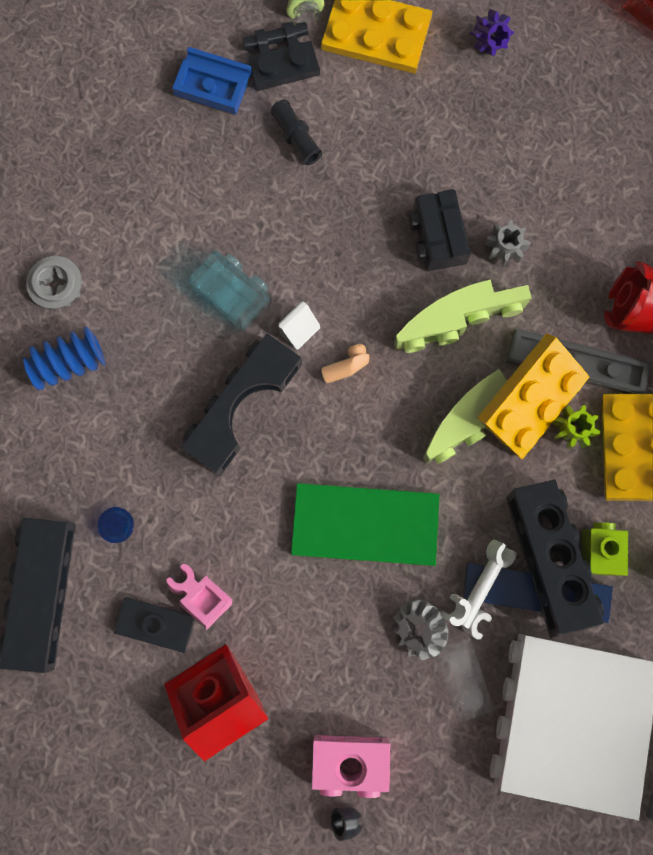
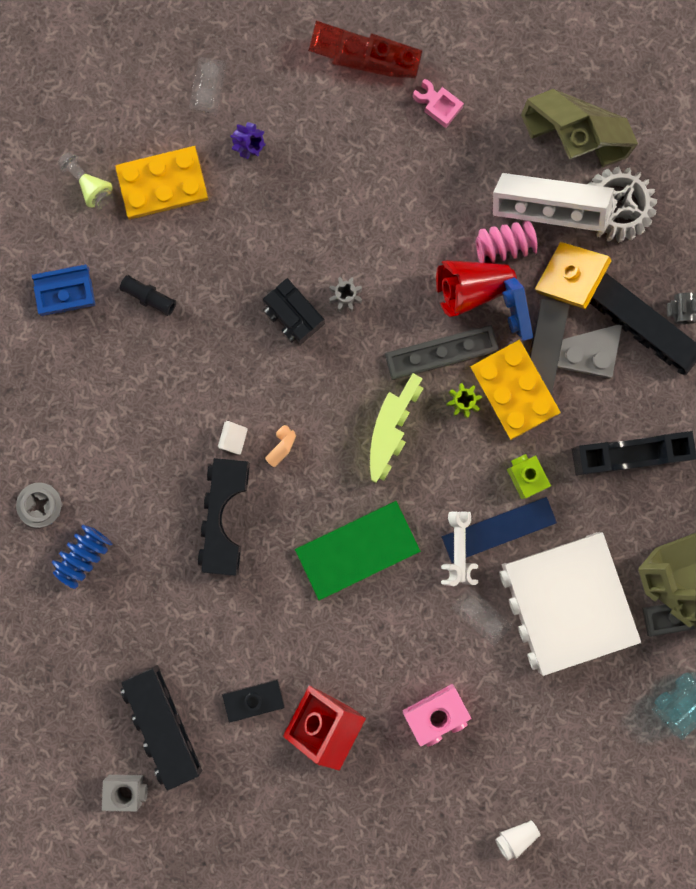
camera: 30 degrees left, 5 degrees up
(115, 525) = (186, 649): clear blue plate -> none
(202, 599) = (276, 665): bright pink plate -> none
(230, 290) = (169, 439): clear light blue brick -> none
(283, 64) = (108, 247): black plate -> none
(350, 826) = (459, 755): black hinge -> none
(434, 635) = (445, 599): light grey gear -> none
(447, 317) = (332, 375): yellowish green slope -> none
(534, 396) = (423, 398): yellow plate -> none
(547, 577) = (521, 538): black brick -> none

